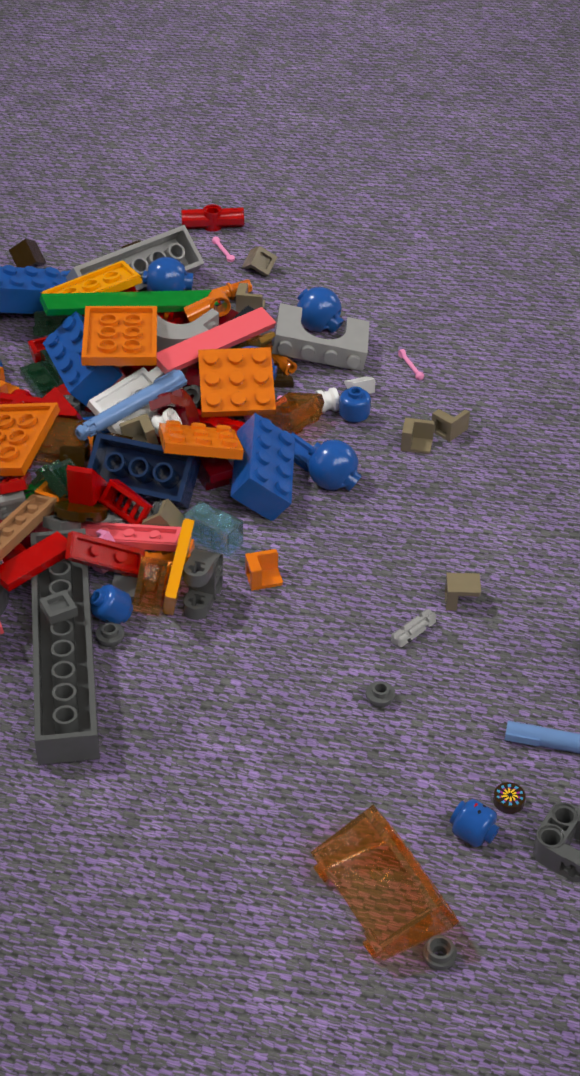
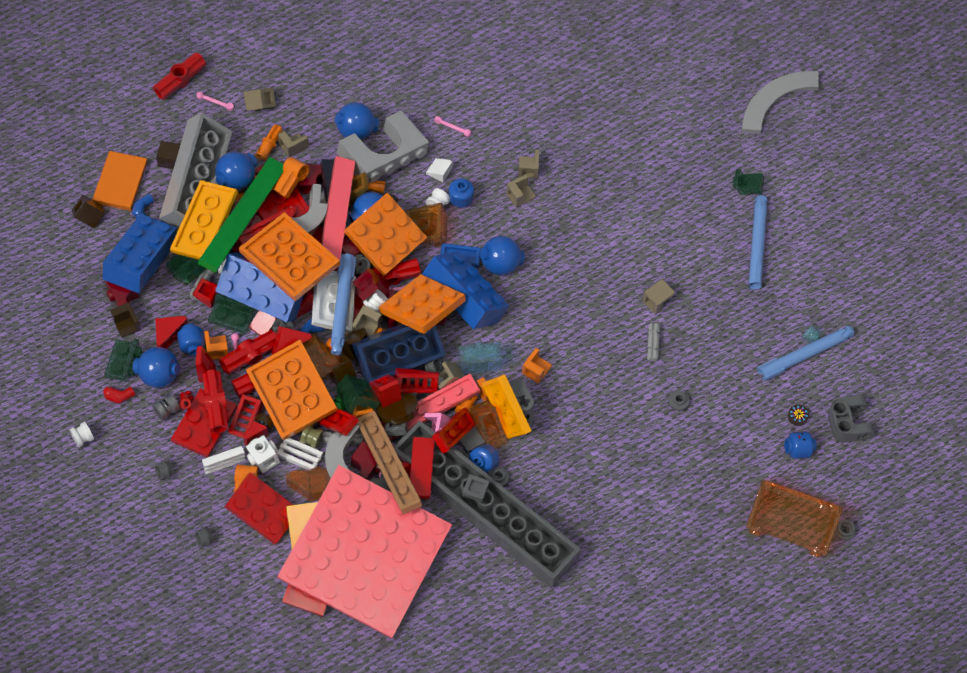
camera: 45 degrees left, 20 degrees up
(77, 252) = (120, 180): none -> orange tile

